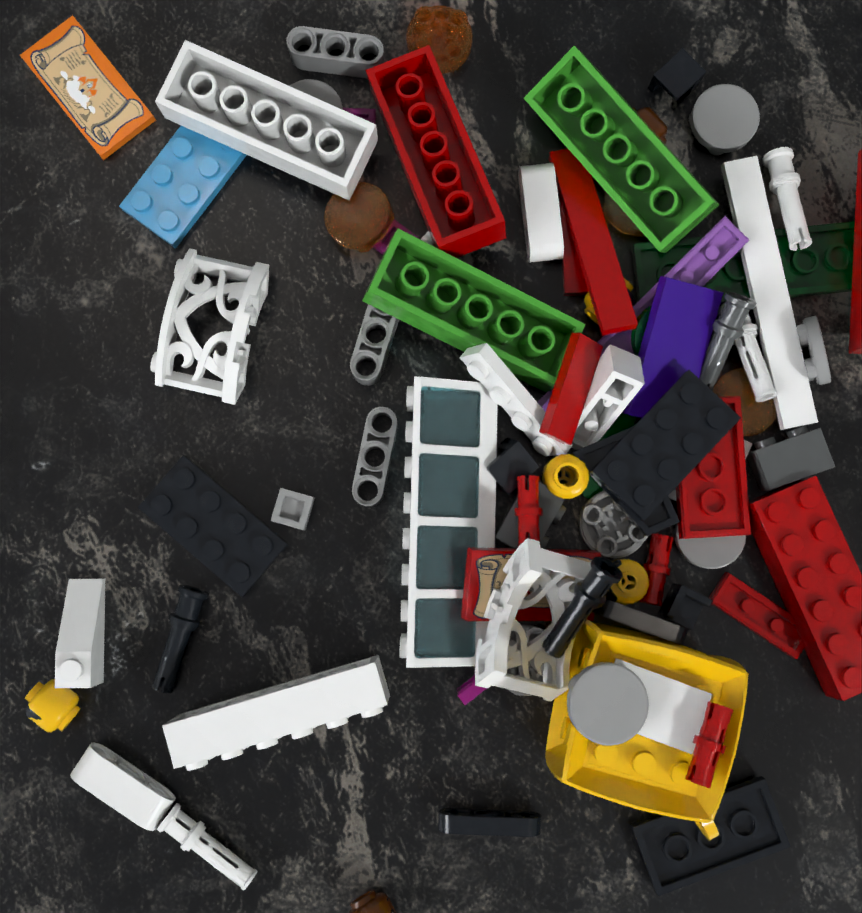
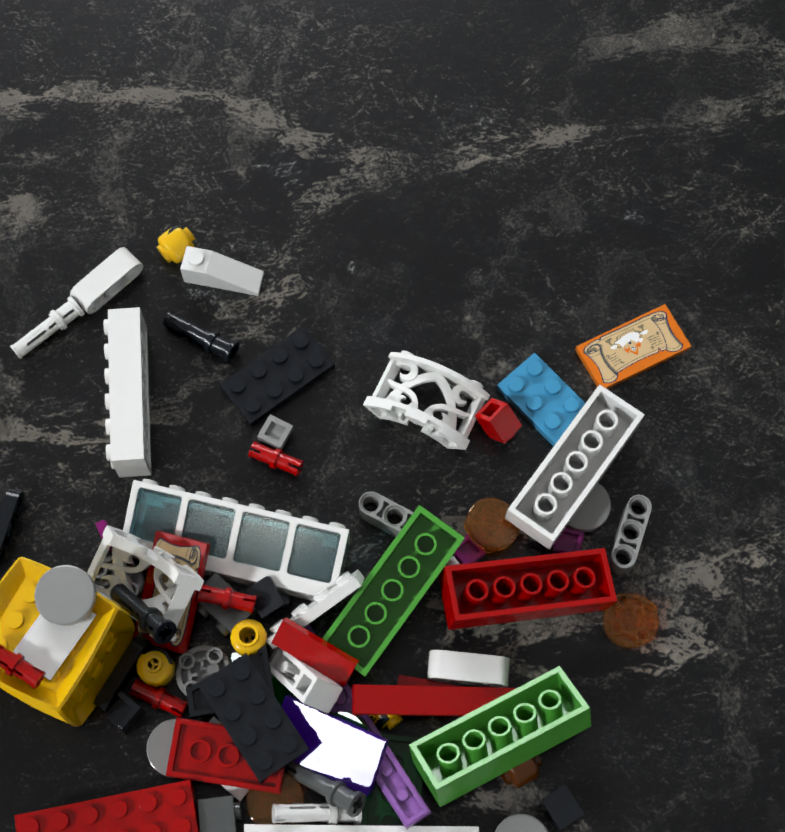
camera: 100 degrees right, 15 degrees down
(222, 231) = (498, 420): none -> red brick
(327, 500) = (276, 458): none -> red pin
(375, 440) = (290, 490): light grey beam -> none
(757, 614) = (102, 773): red tile -> none

